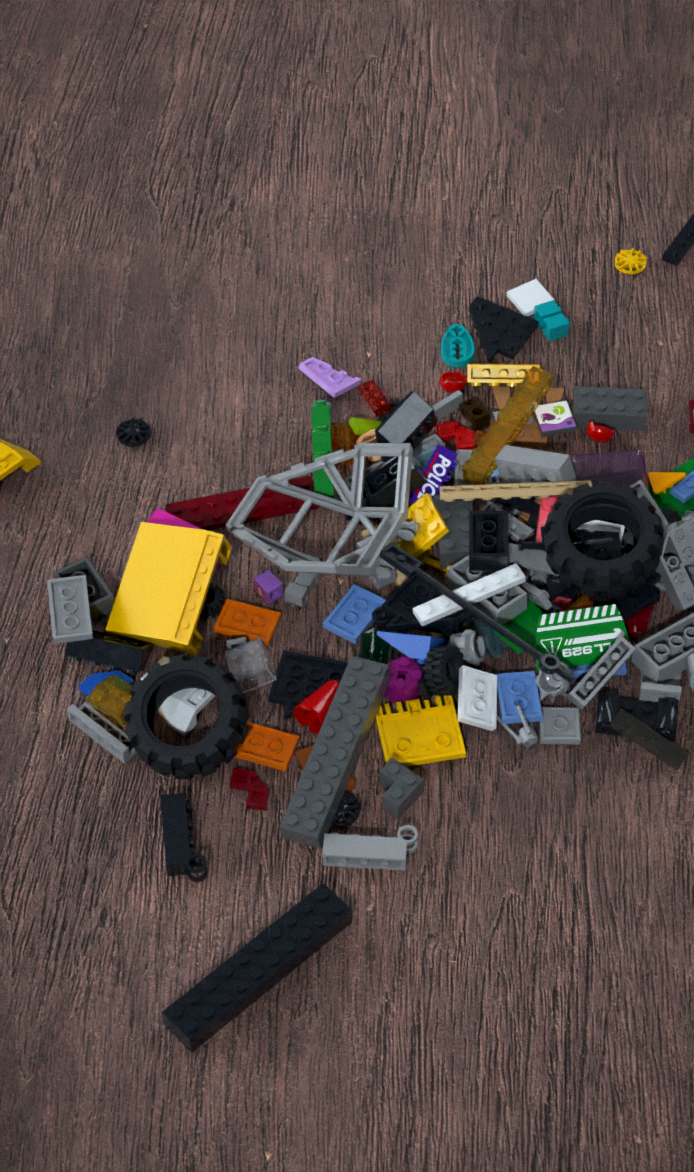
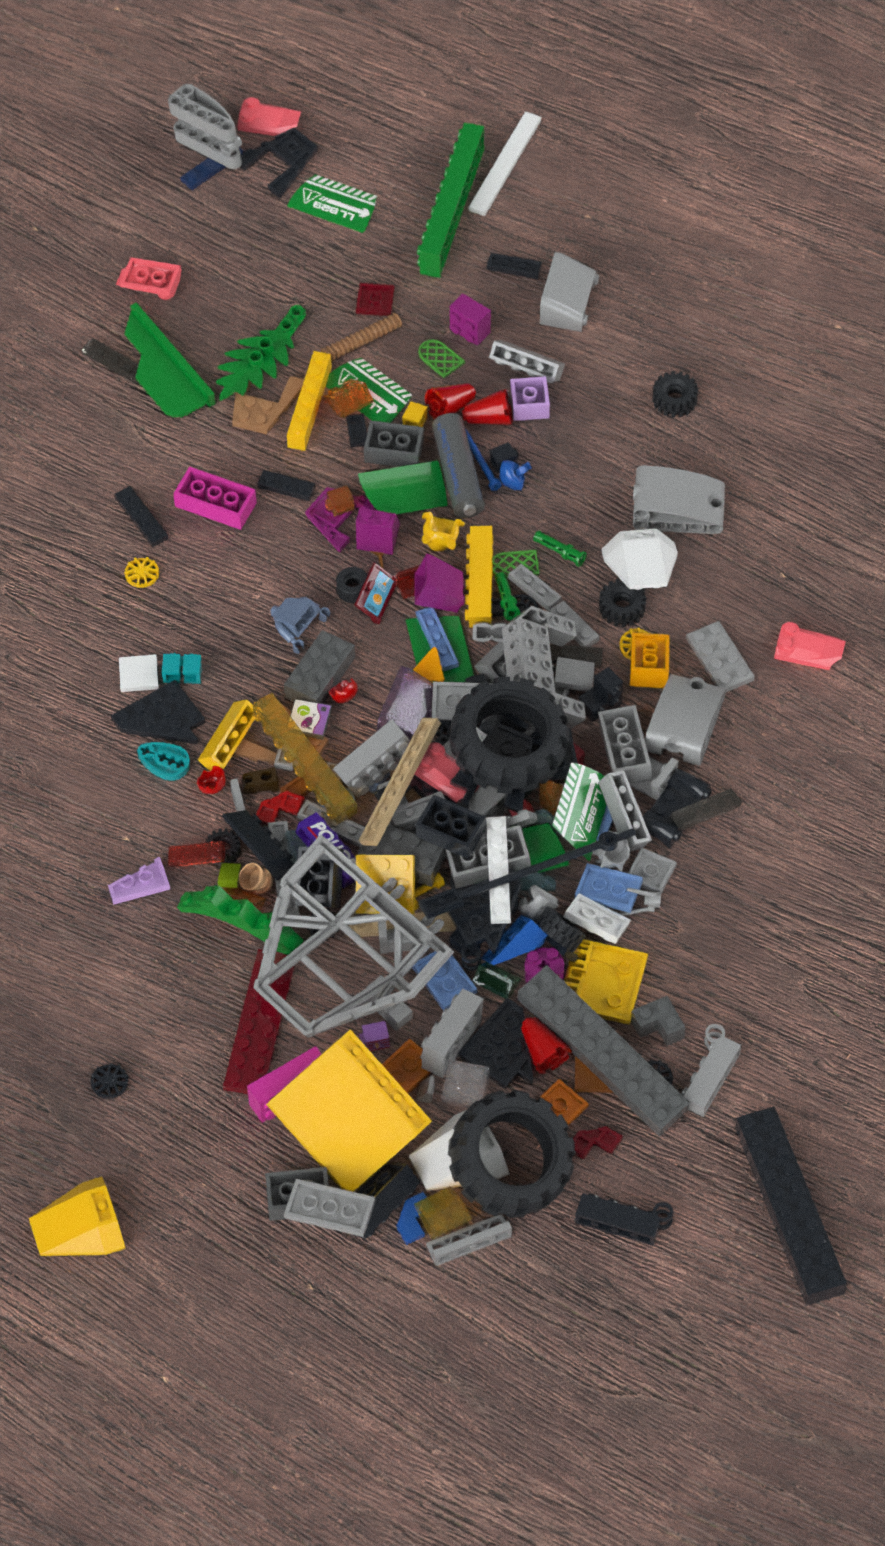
camera: 65 degrees left, 5 degrees up
(295, 632) = (451, 1032): none -> light grey brick
(651, 369) = (294, 617): none -> sand blue torso

